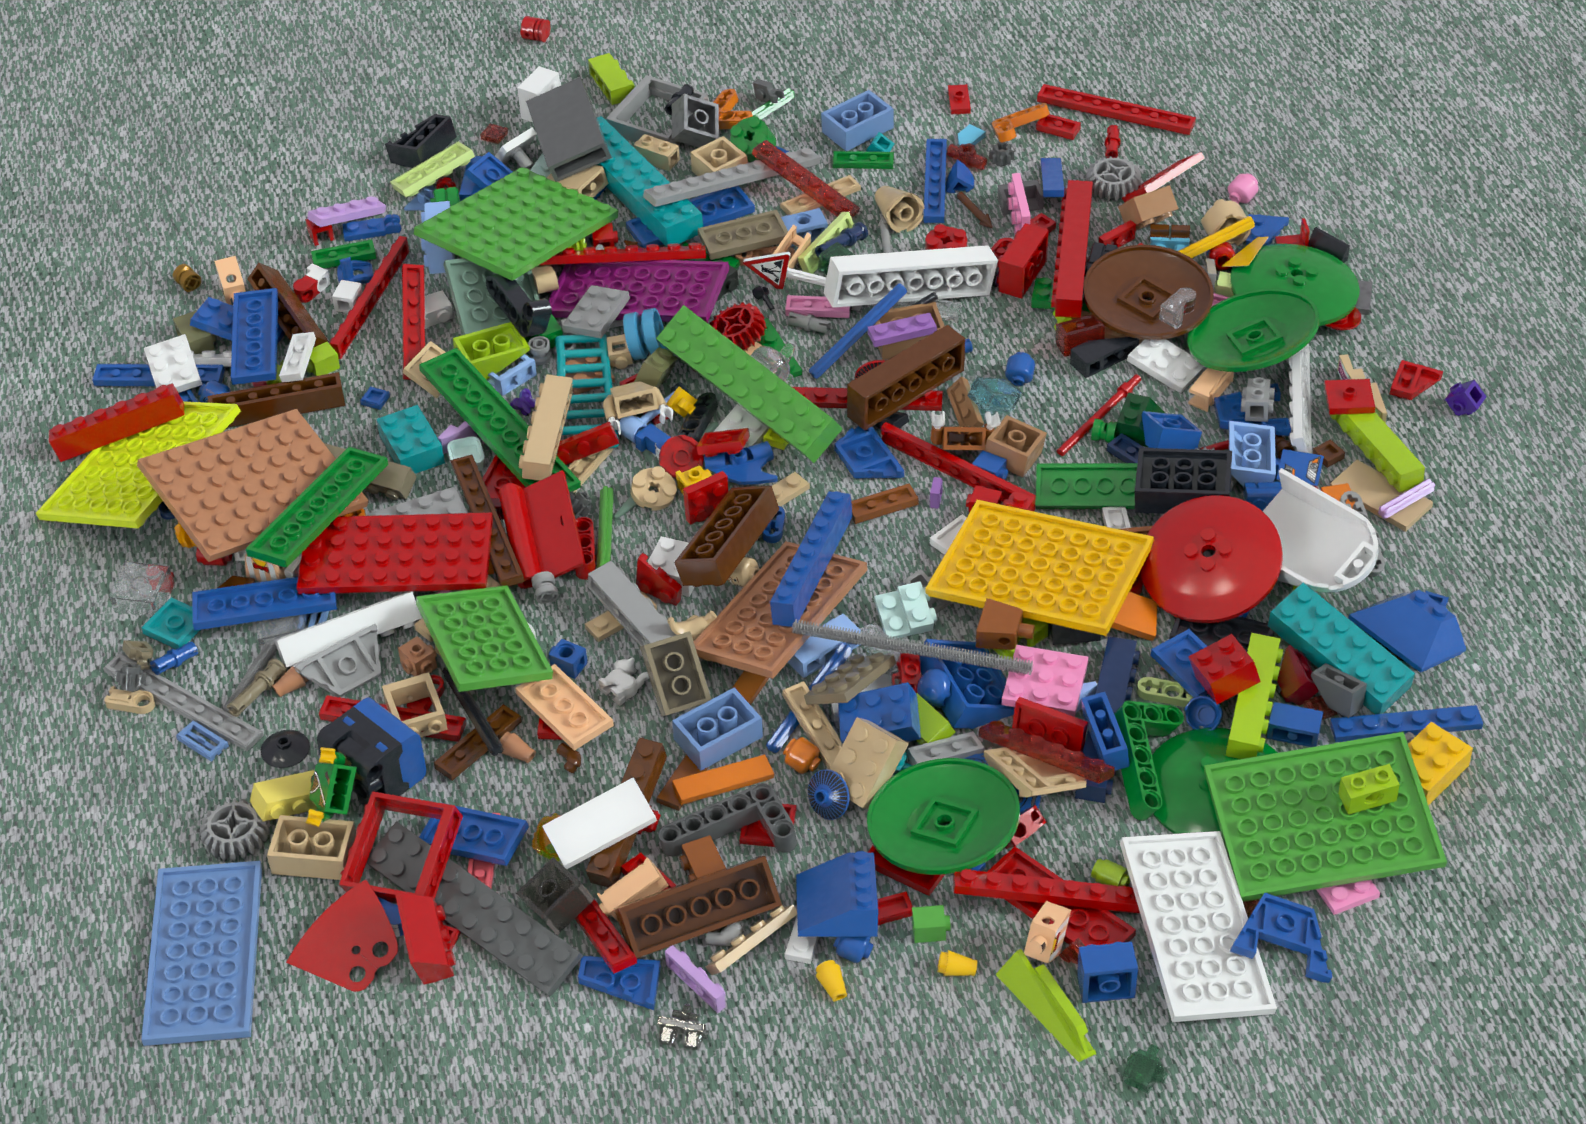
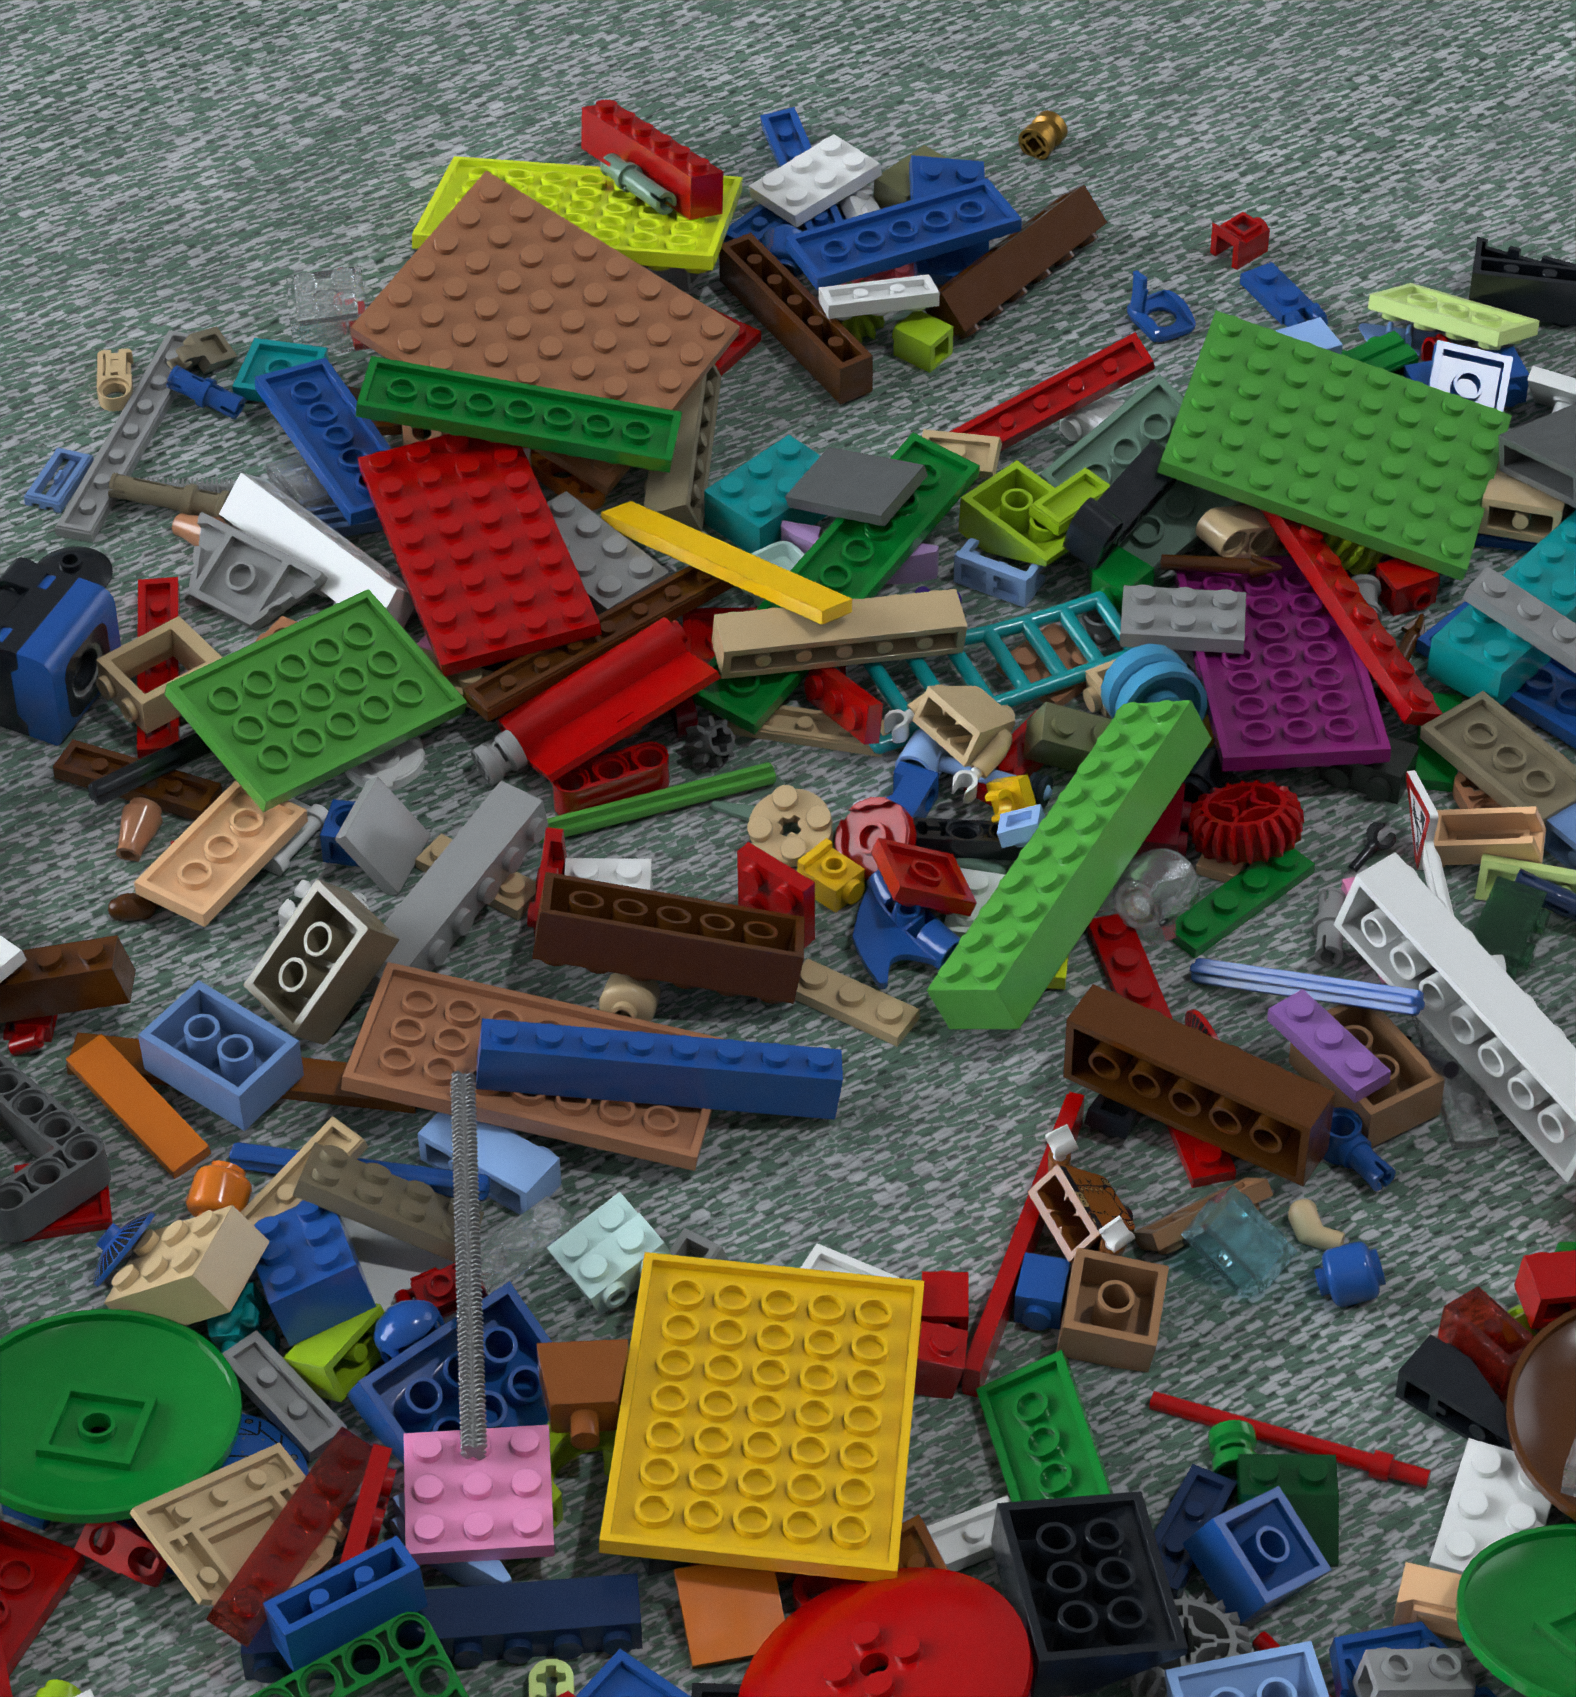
camera: 70 degrees right, 0 degrees up
(130, 677) = (139, 355): dark grey gear -> none
(136, 430) = (631, 179): none -> sand green pin
(227, 267) = (1042, 176): light nougat torso -> none
(311, 283) = (1100, 272): leg -> none
(331, 256) = (1193, 284): green plate -> none
(346, 295) = (1090, 322): white brick -> none
(347, 211) = (1287, 251): lavender plate -> none
(370, 296) = (1068, 346): red plate -> none
(375, 398) = (872, 432): blue tile -> none
(447, 394) = (856, 486): none -> dark grey tile
(473, 455) = (728, 563): none -> yellow tile
(496, 325) = (1060, 505): none -> lime tile
(540, 350) = (1069, 581): light grey wheel -> none
(570, 280) = (1253, 566): none -> reddish brown piece
(584, 640) = (382, 836): none -> light grey tile
(694, 624) = (449, 958): tan piece -> none
(708, 398) = (1019, 825): none -> light blue plate
(778, 525) = (776, 1019): blue beam -> none
(867, 455) = (1007, 1100): blue wing -> none
(883, 503) = (888, 1155): dark orange plate -> none
(936, 492) = (943, 1225): medium lavender tile -> none
(994, 372) = (1309, 1228): none -> tan arm

